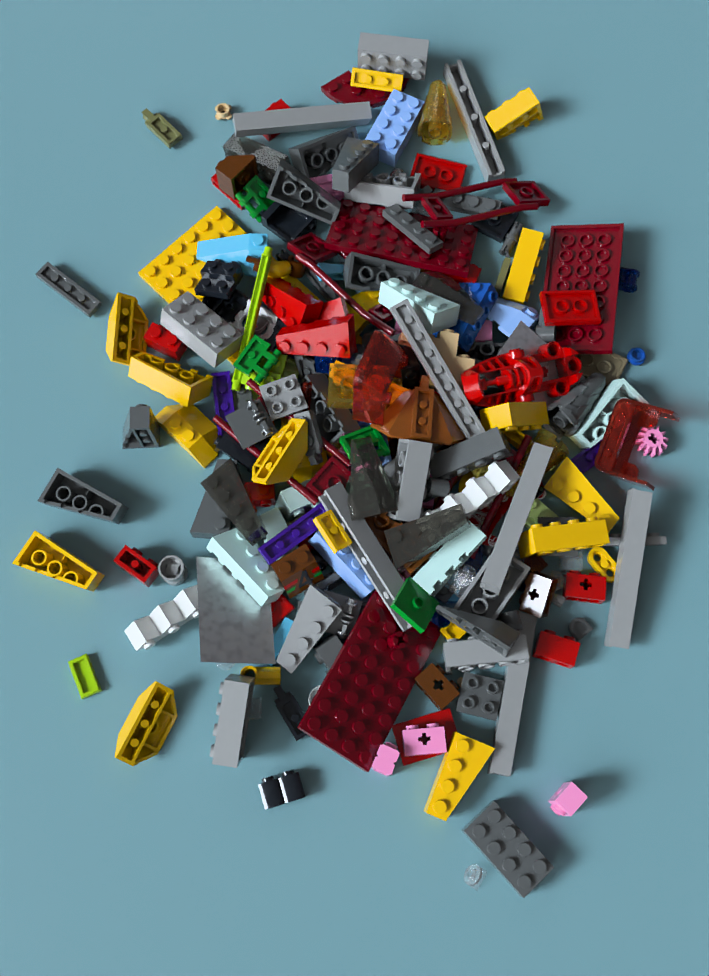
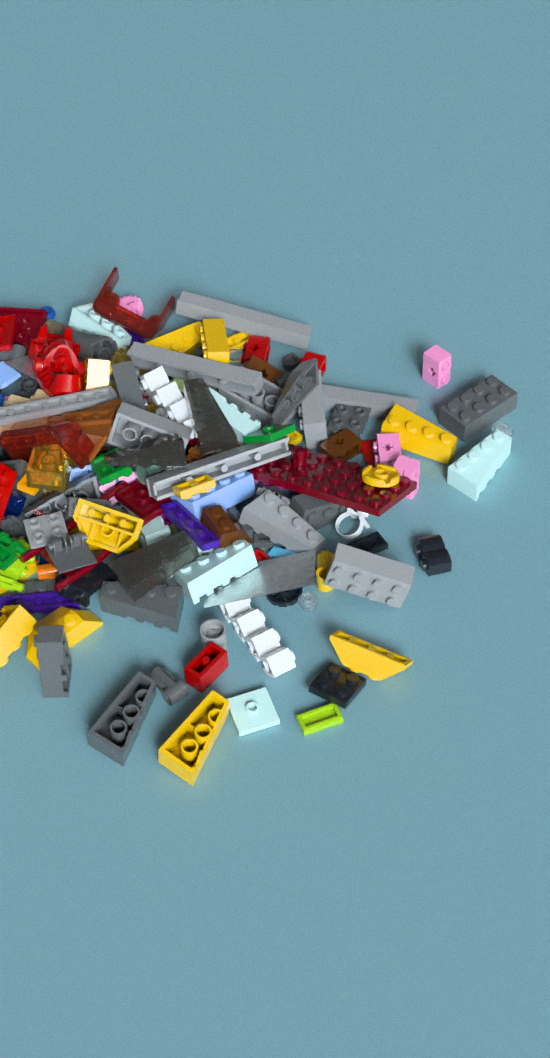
camera: 85 degrees left, 25 degrees down
(95, 613) = (253, 711): none -> light aqua plate
(117, 692) = (337, 685): none -> black plate
(120, 536) = (170, 688): none -> dark grey piece
(364, 730) = (380, 476): none -> yellow tile
(410, 844) = (479, 464): none -> light aqua wedge

